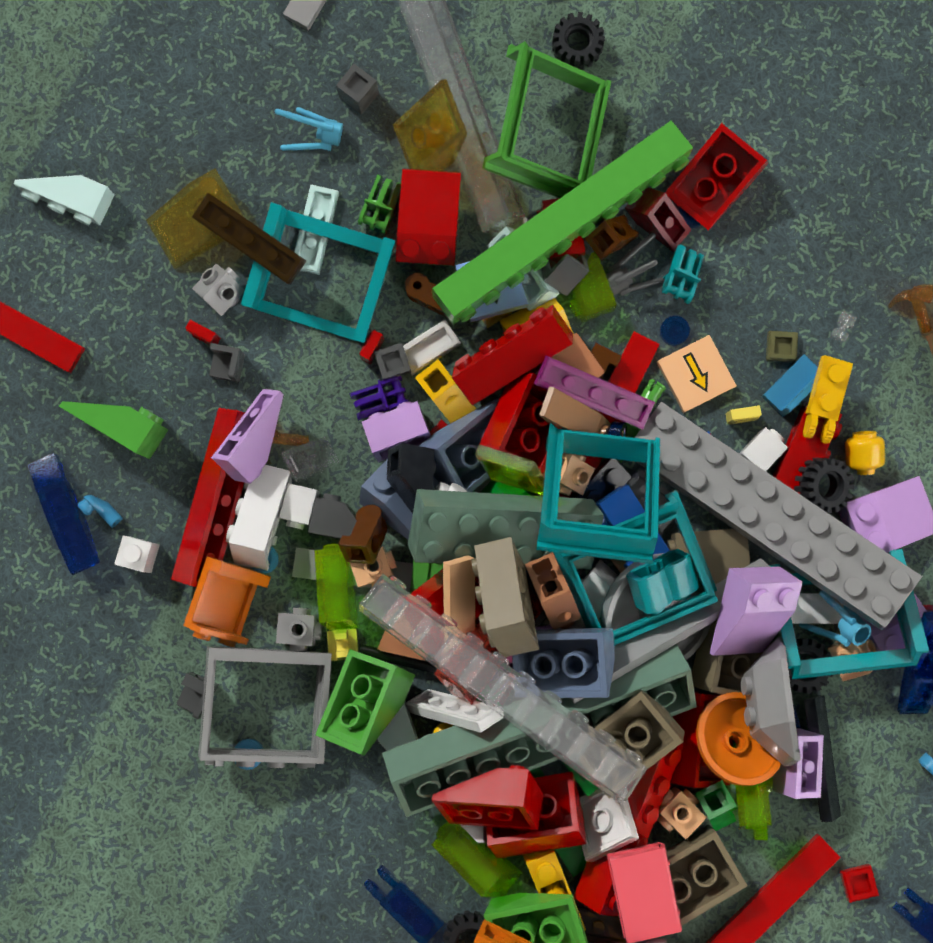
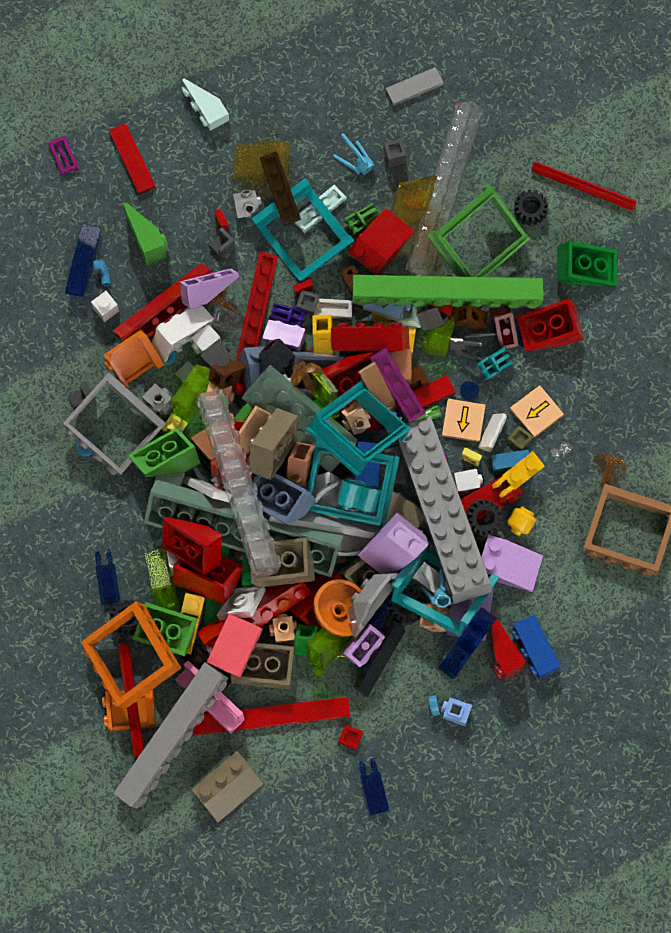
camera: 35 degrees right, 10 degrees down
(332, 417) = (256, 308): none -> red tile
(467, 467) = (302, 374): none -> clear orange plant
(700, 67) = (586, 265): none -> green slope
(744, 363) = (492, 432): none -> white slope
(776, 297) = (536, 411): none -> light nougat tile

